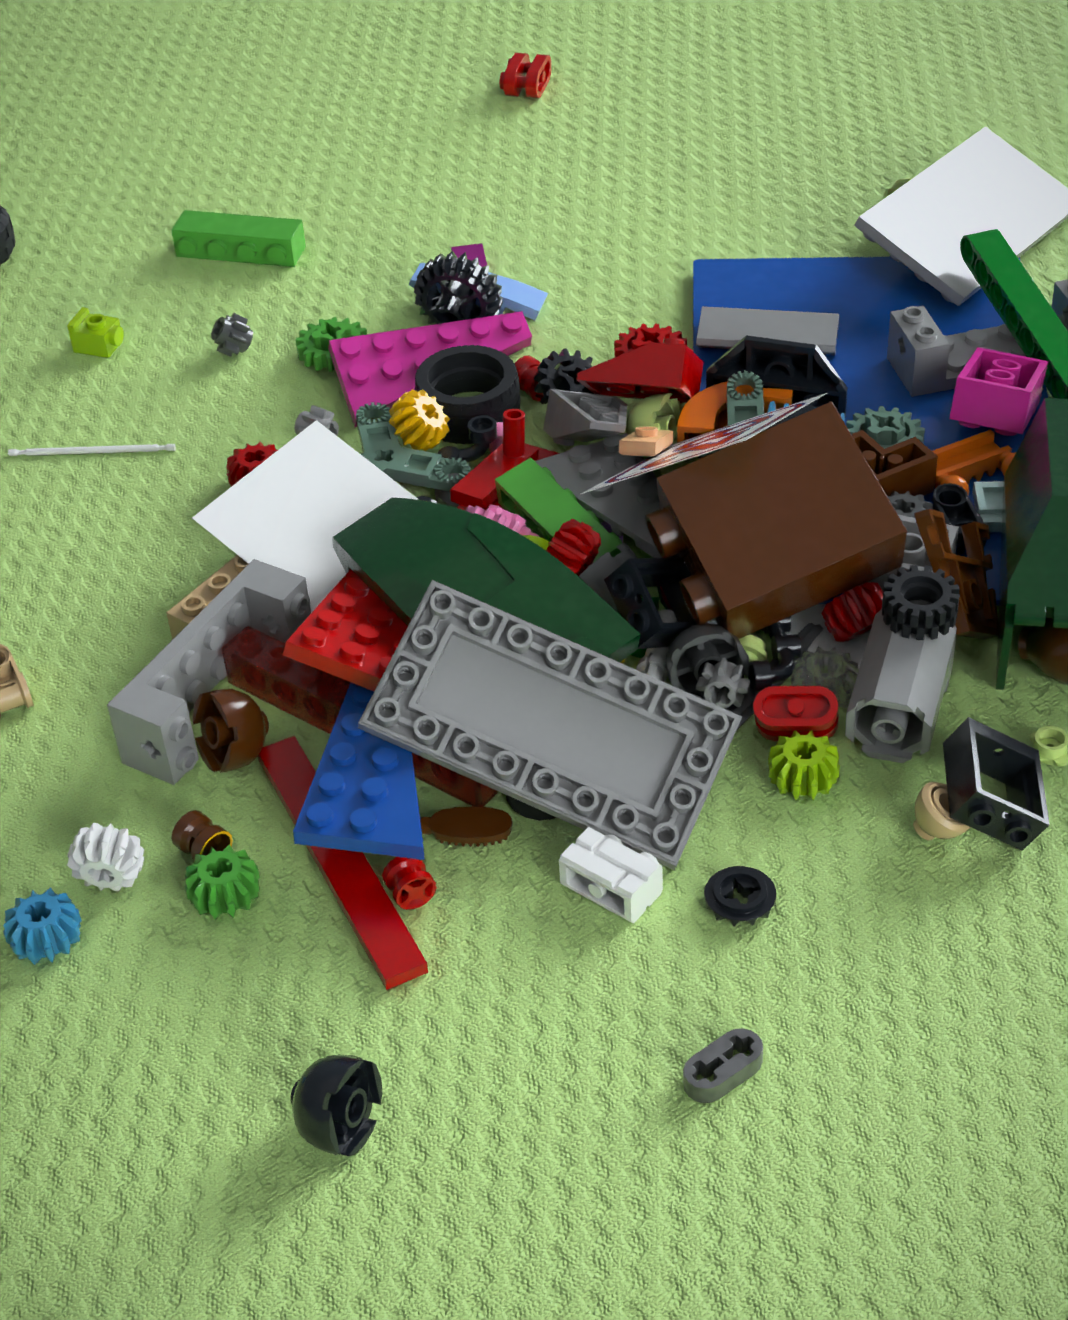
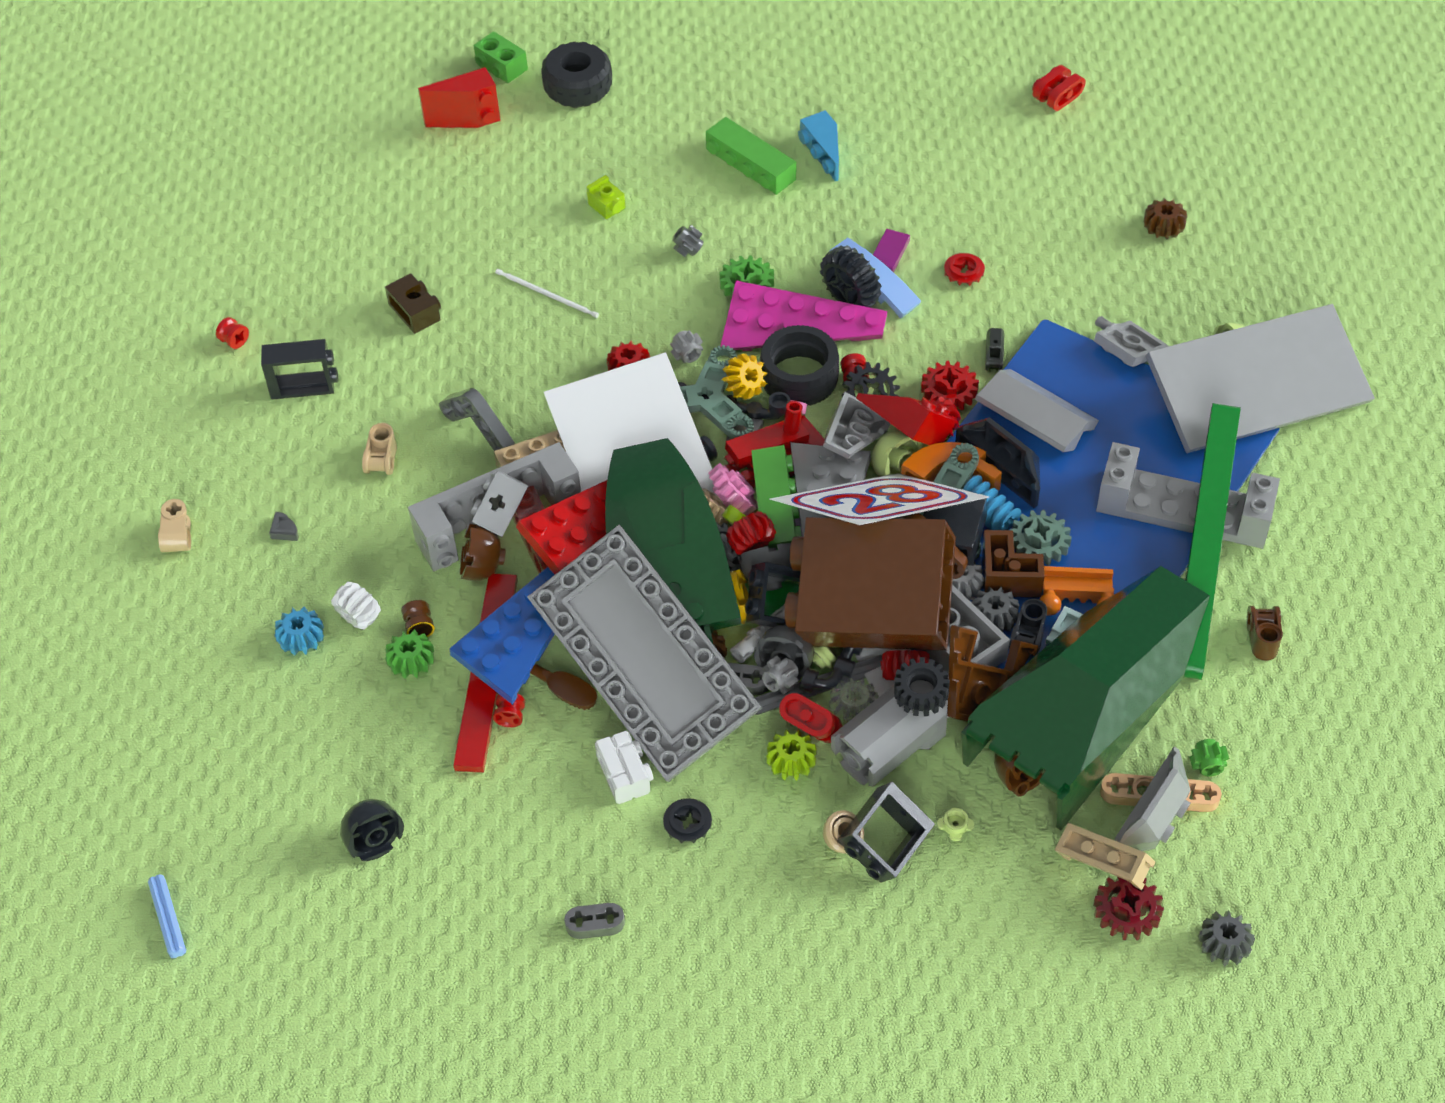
camera: 30 degrees right, 10 degrees up
(113, 580) = (472, 404): none -> dark grey beam
(239, 633) = (512, 493): none -> light grey brick
(313, 199) = (821, 137): none -> dark azure slope
(578, 251) = (956, 263): none -> red gear
(645, 442) = (865, 469): light nougat plate -> none
(666, 304) = (994, 348): none -> pearl dark grey bar
(737, 137) = (1165, 218): none -> reddish brown gear
(816, 244) = (1126, 341): none -> light grey plate
(998, 391) = (1138, 542): dark pink brick -> none

